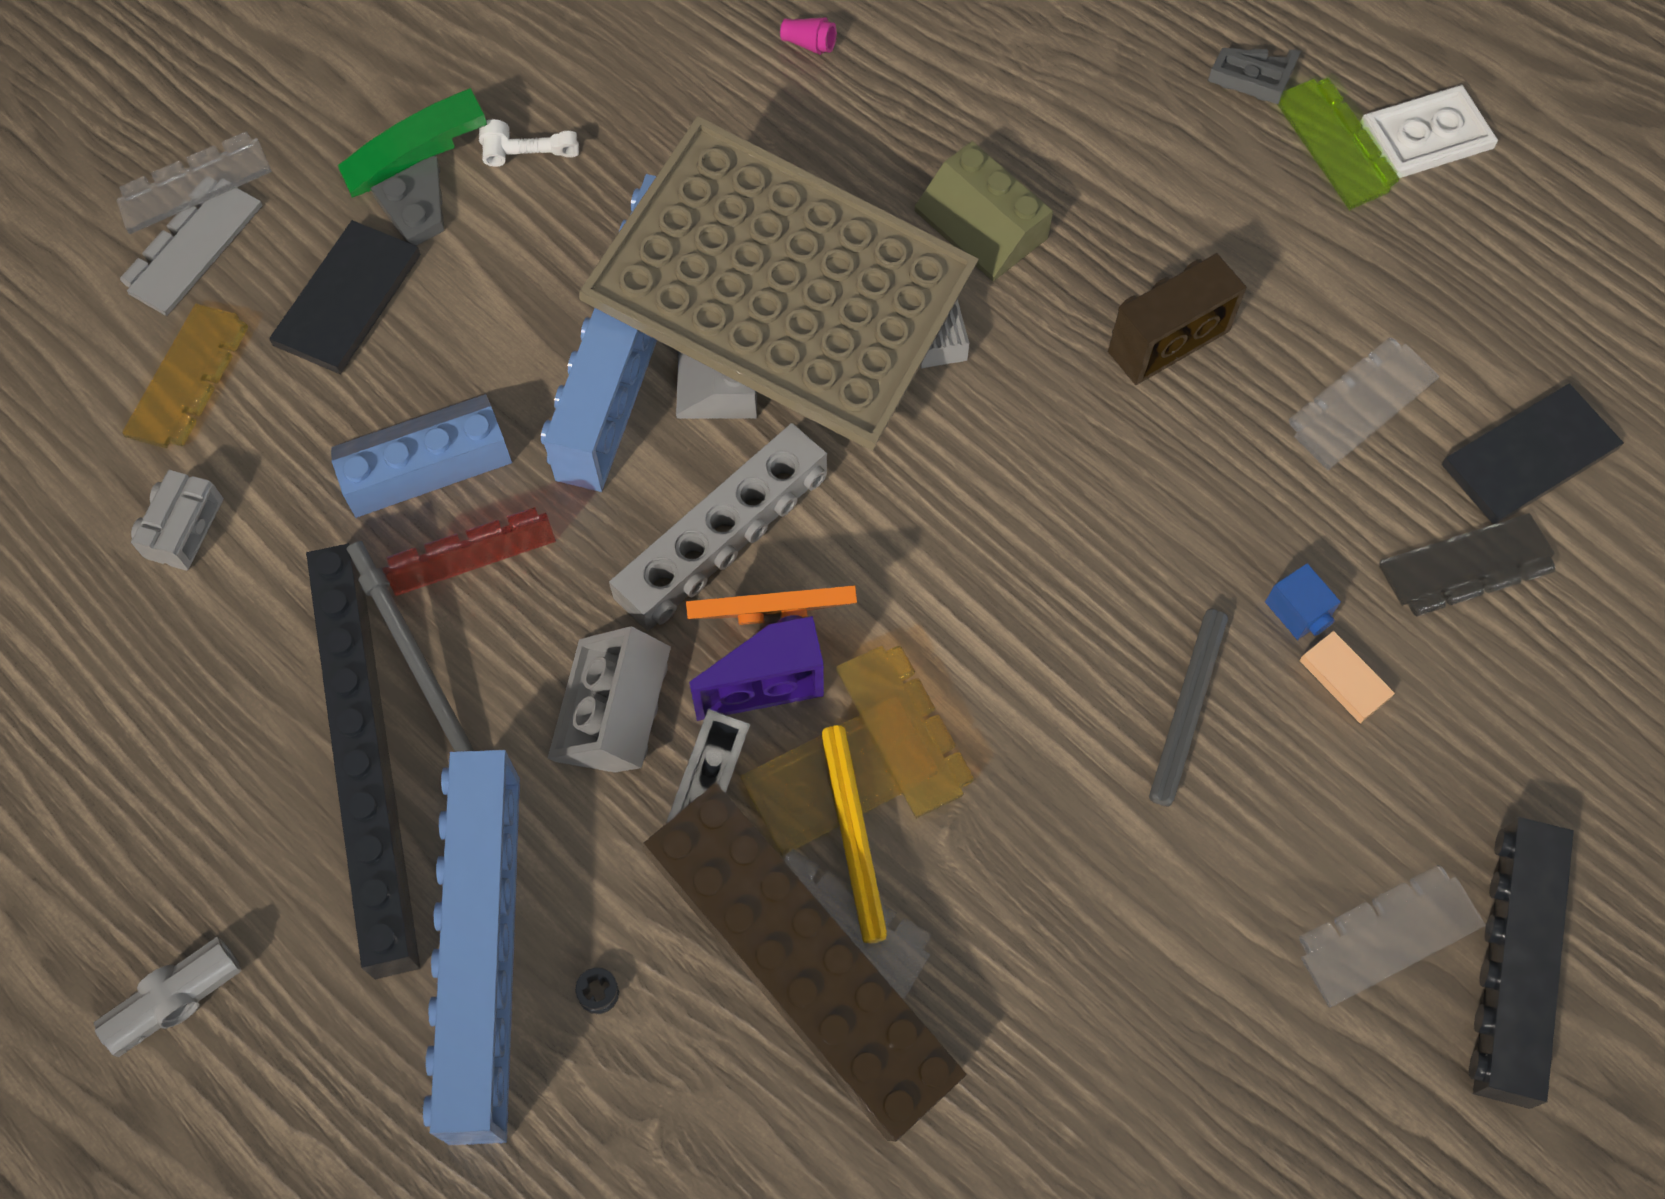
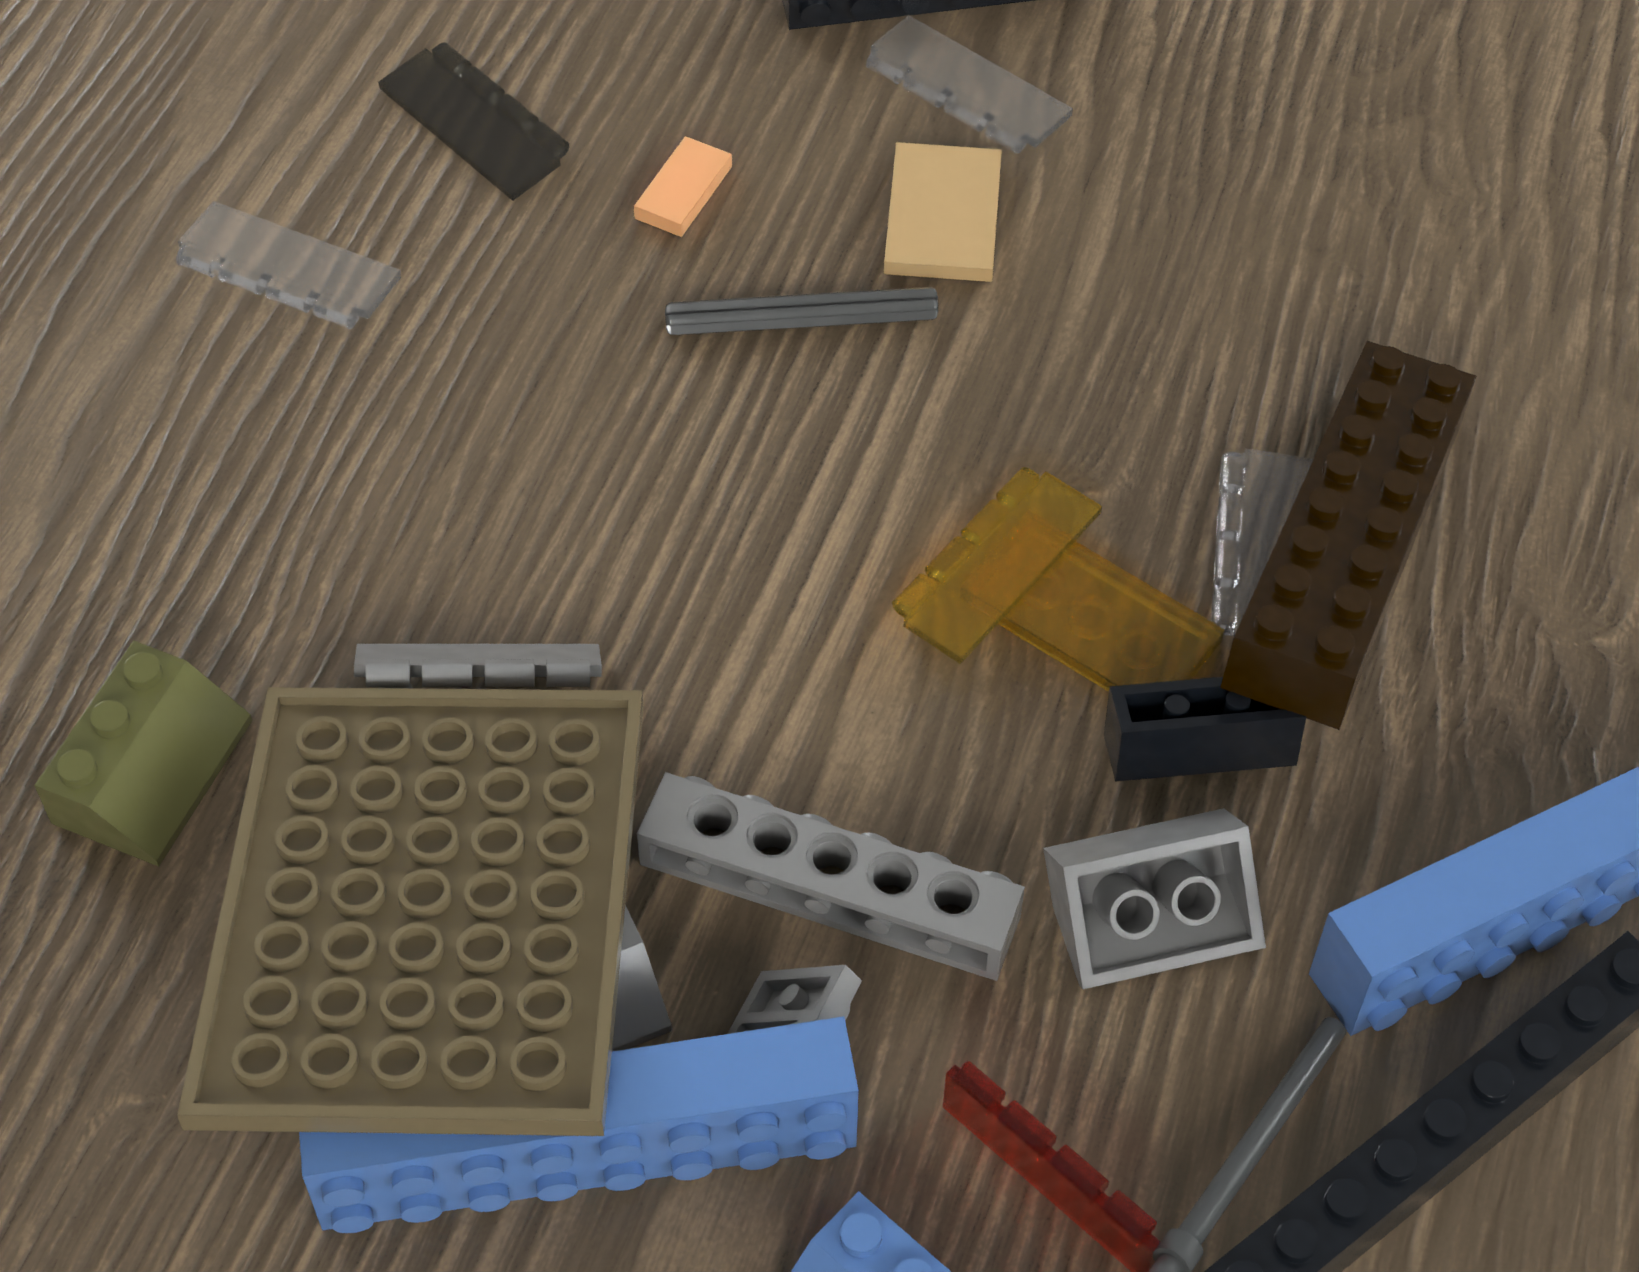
camera: 115 degrees left, 10 degrees down
(583, 988) = (1496, 739): black bush -> none
(637, 459) = (797, 997): none -> light grey wing
(752, 608) = (927, 739): orange wing -> none
(765, 671) = (1023, 715): dark purple slope -> none
(854, 835) = (1159, 558): yellow axle -> none
(960, 401) = (457, 663): none -> light grey windscreen
(1175, 318) = (261, 454): dark brown brick -> none
(1253, 851) = (943, 212): none -> tan tile
(1303, 602) = (613, 238): blue brick -> none
(1532, 454) = (293, 95): black tile -> none

